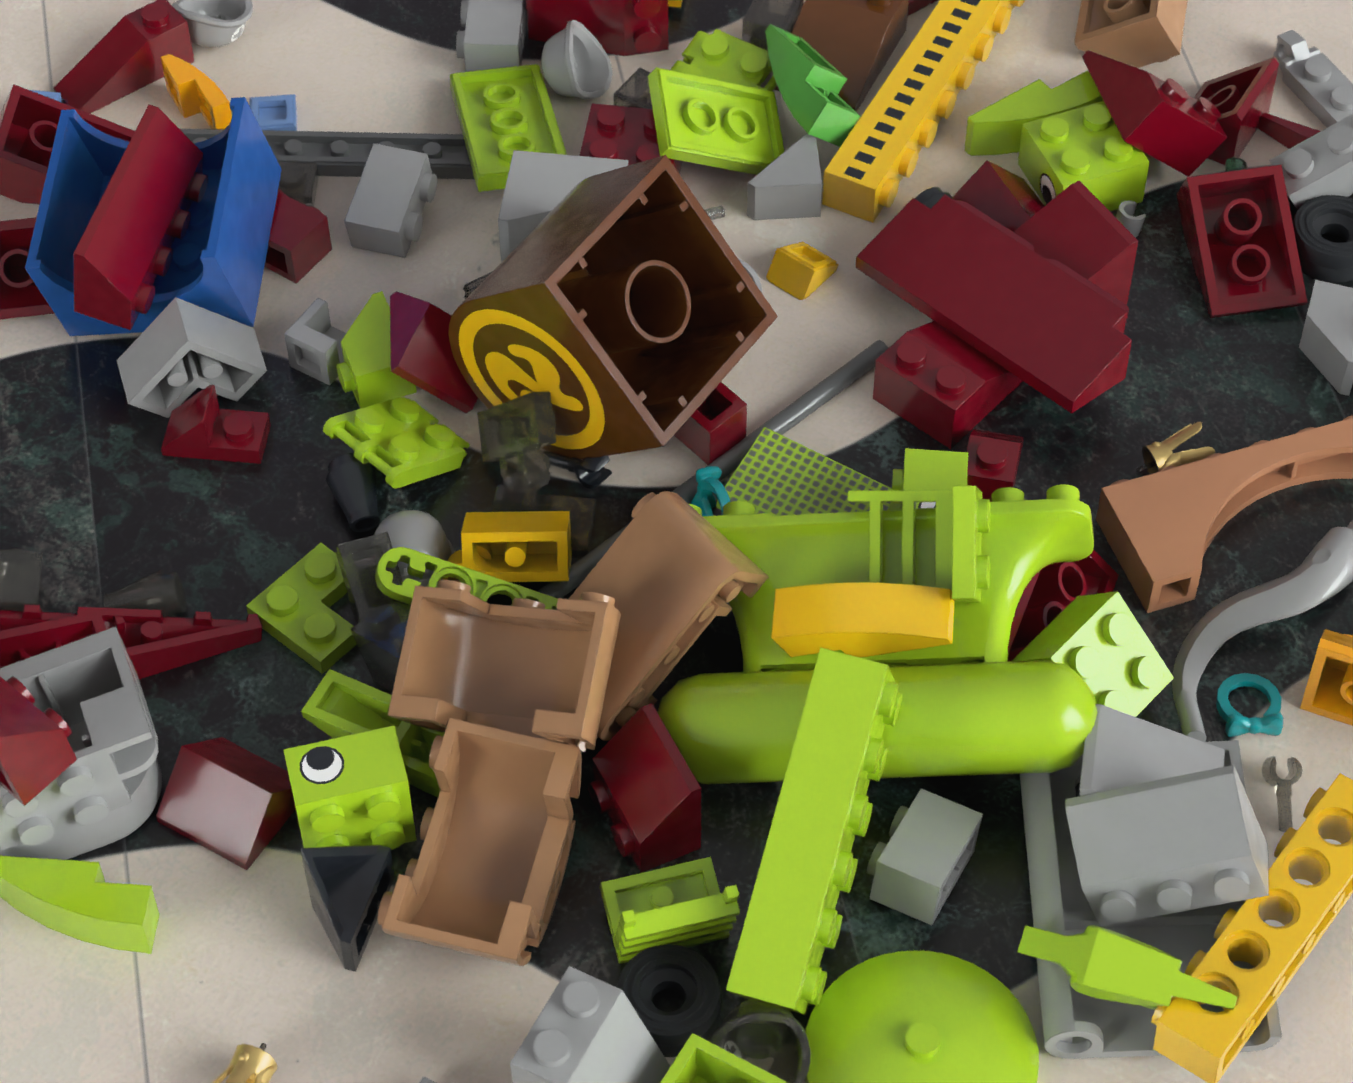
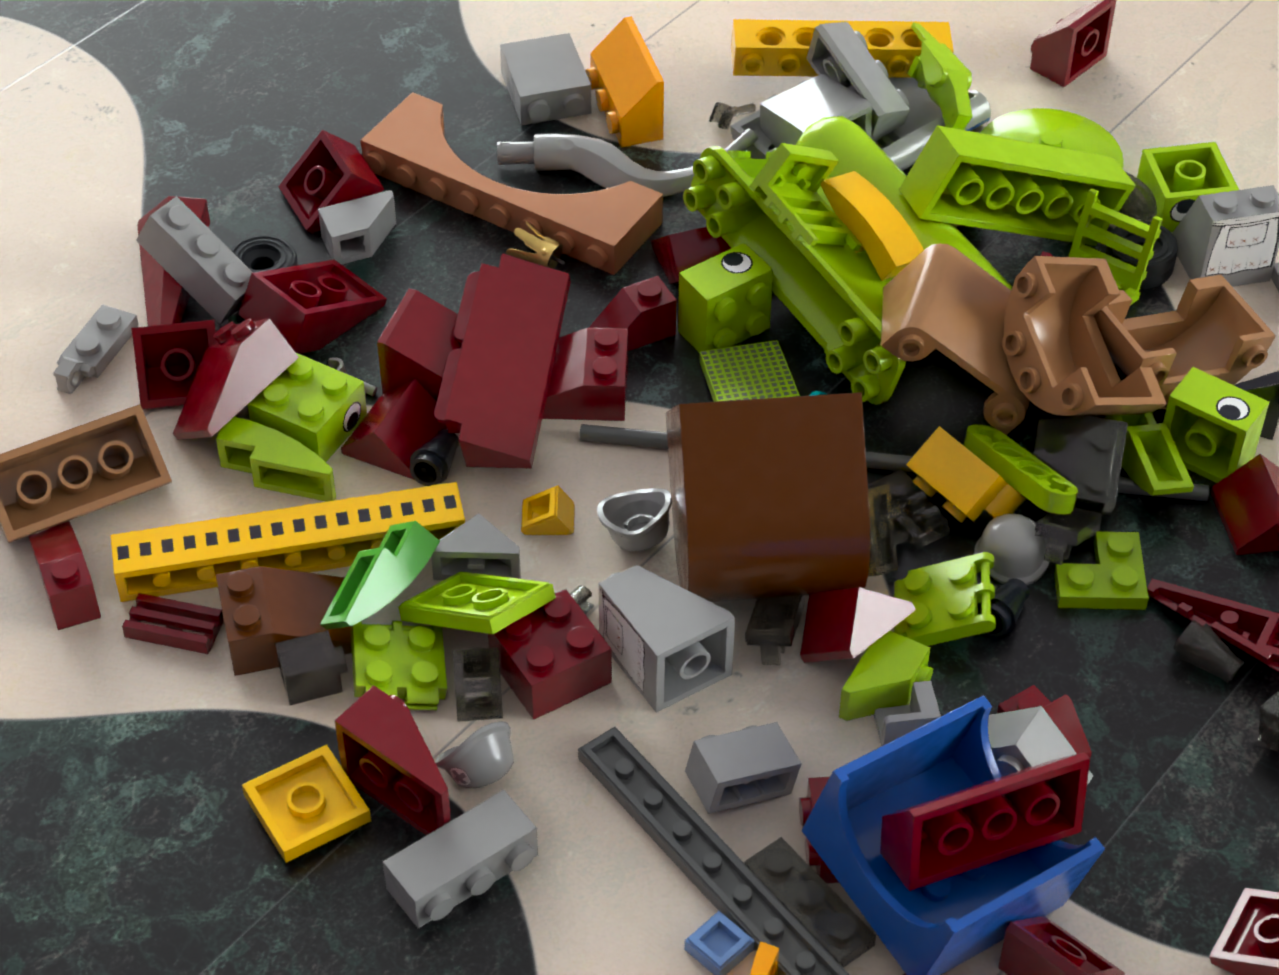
camera: 130 degrees left, 5 degrees down
(501, 114) = (588, 754): lime tile -> none
(1236, 723) = (692, 138): teal piece -> none

